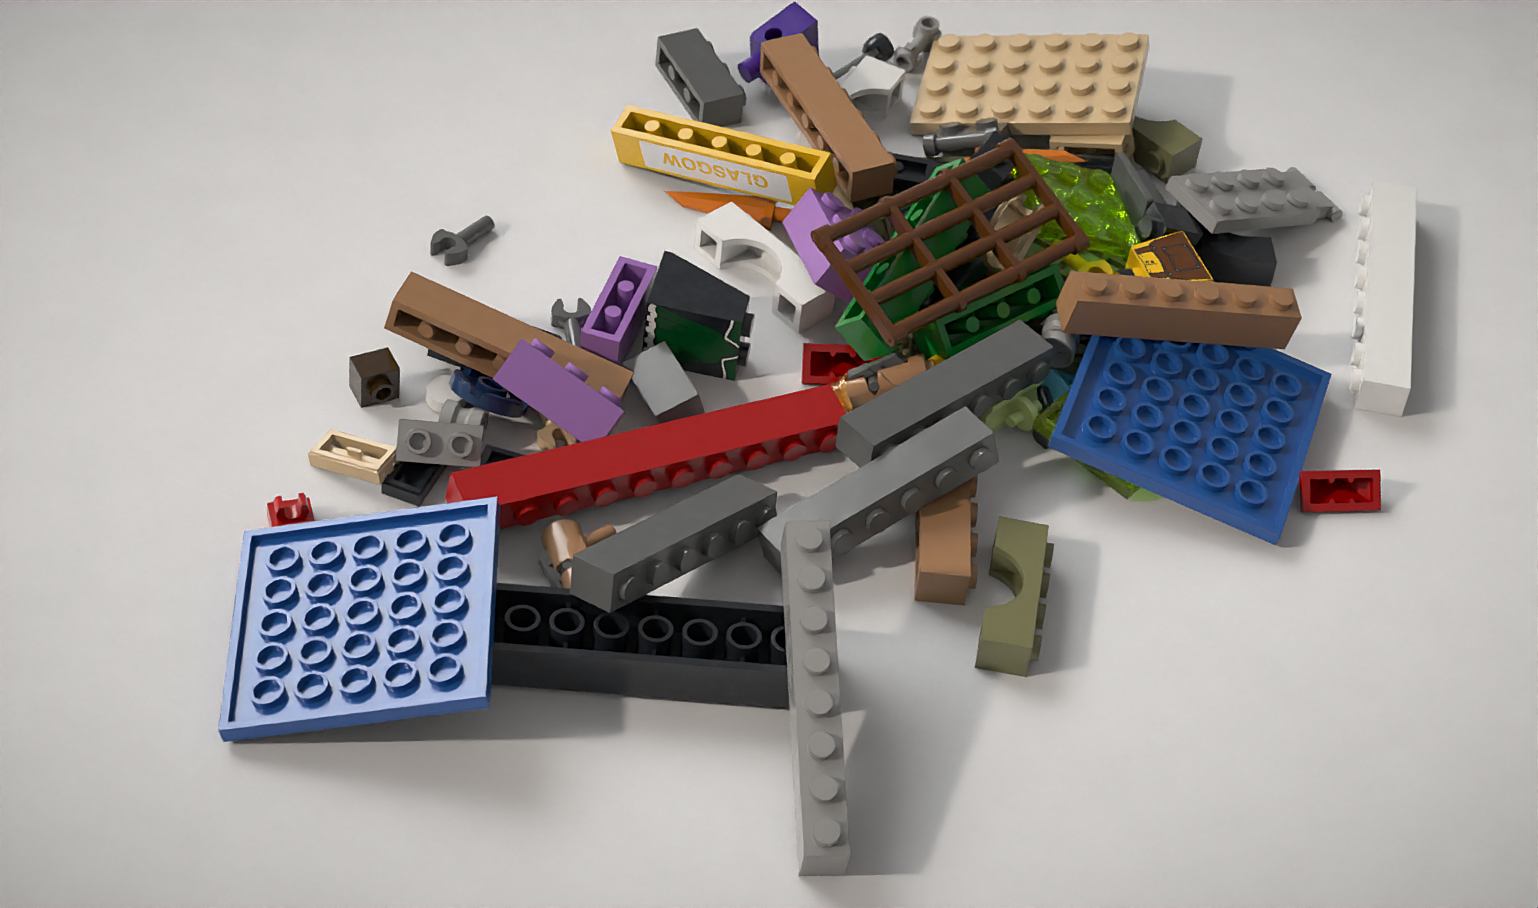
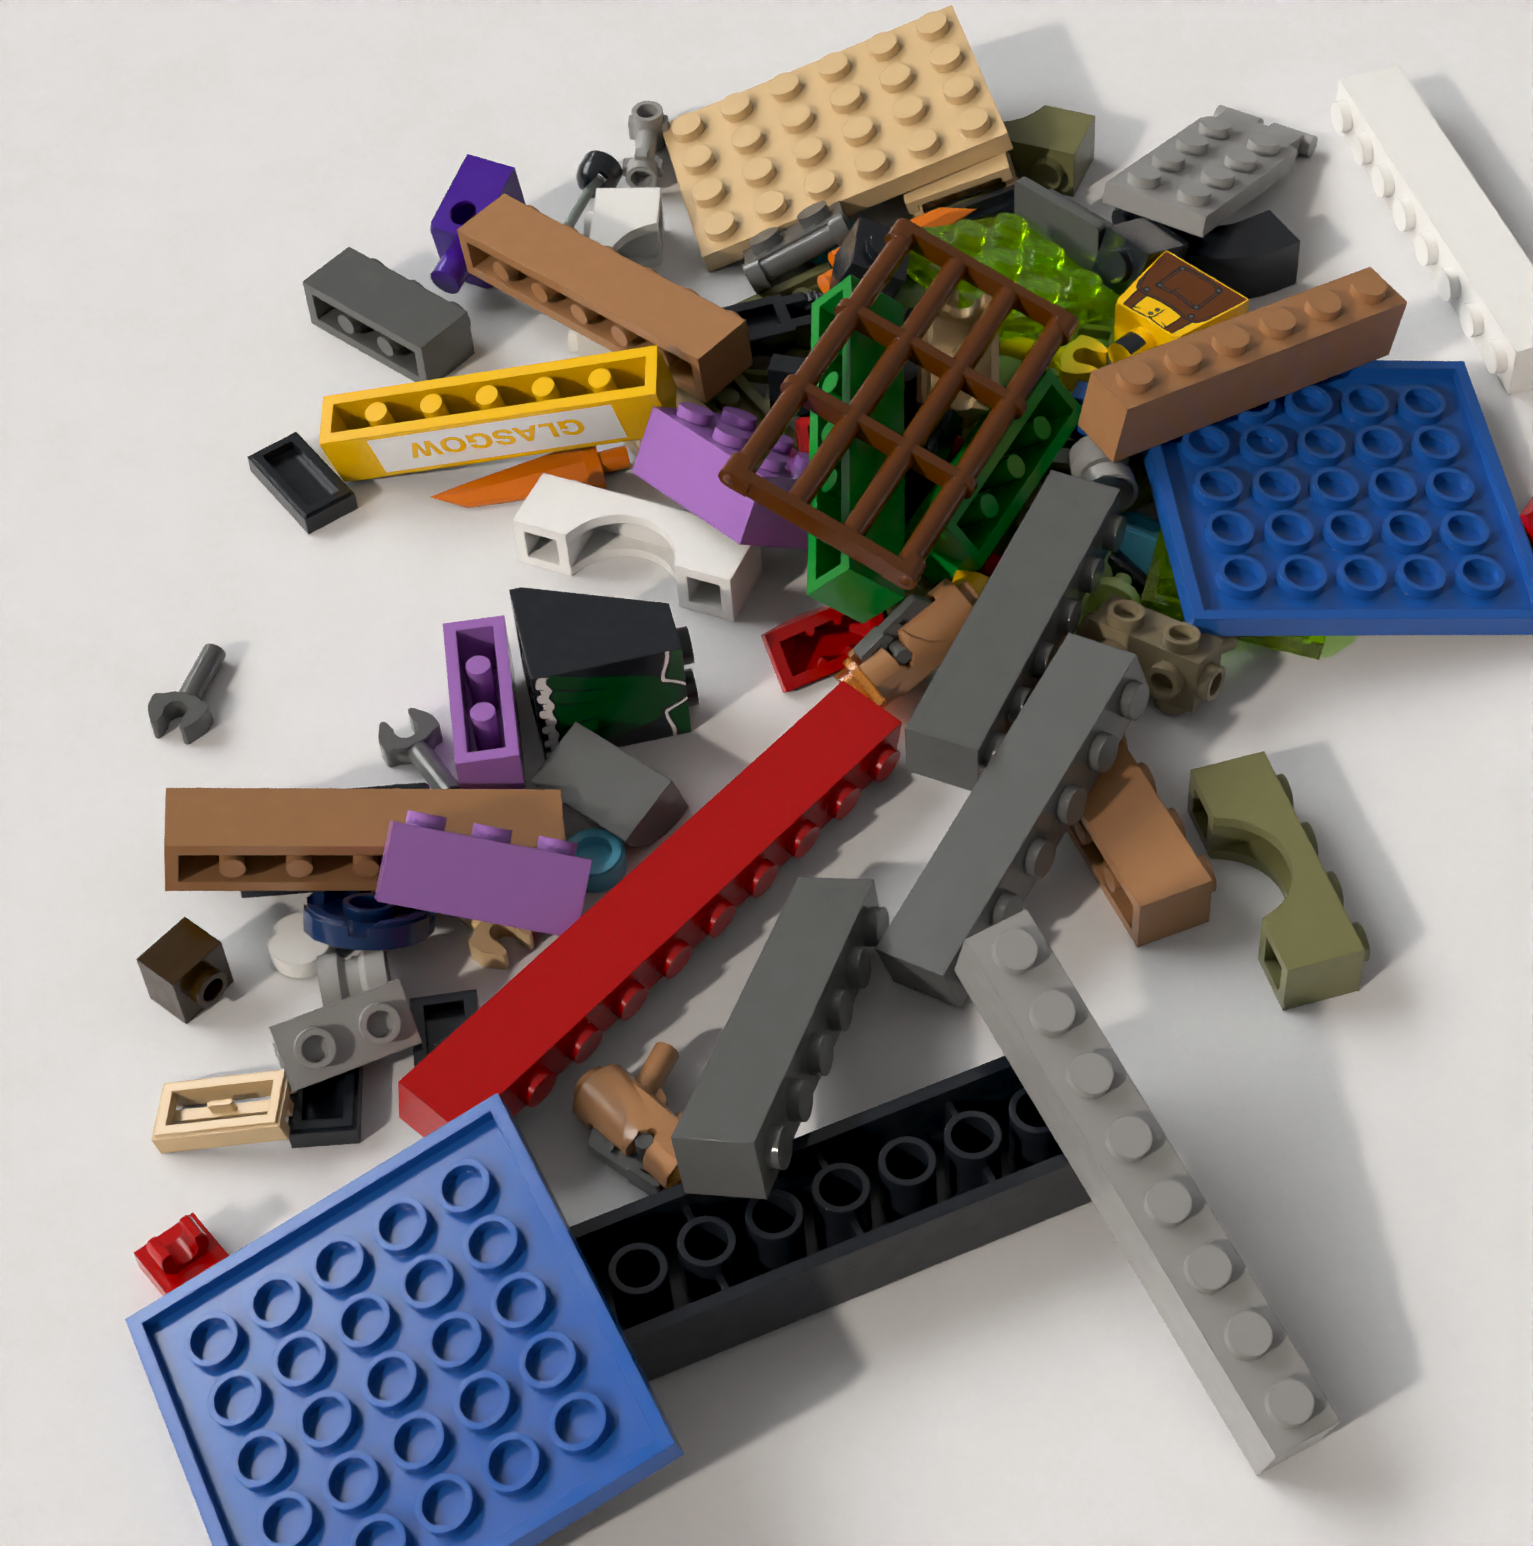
camera: 15 degrees left, 5 degrees up
(594, 151) = (302, 482): none -> black tile
(636, 417) = (607, 858): none -> medium azure tile
(1027, 451) = (1174, 655): none -> dark tan brick

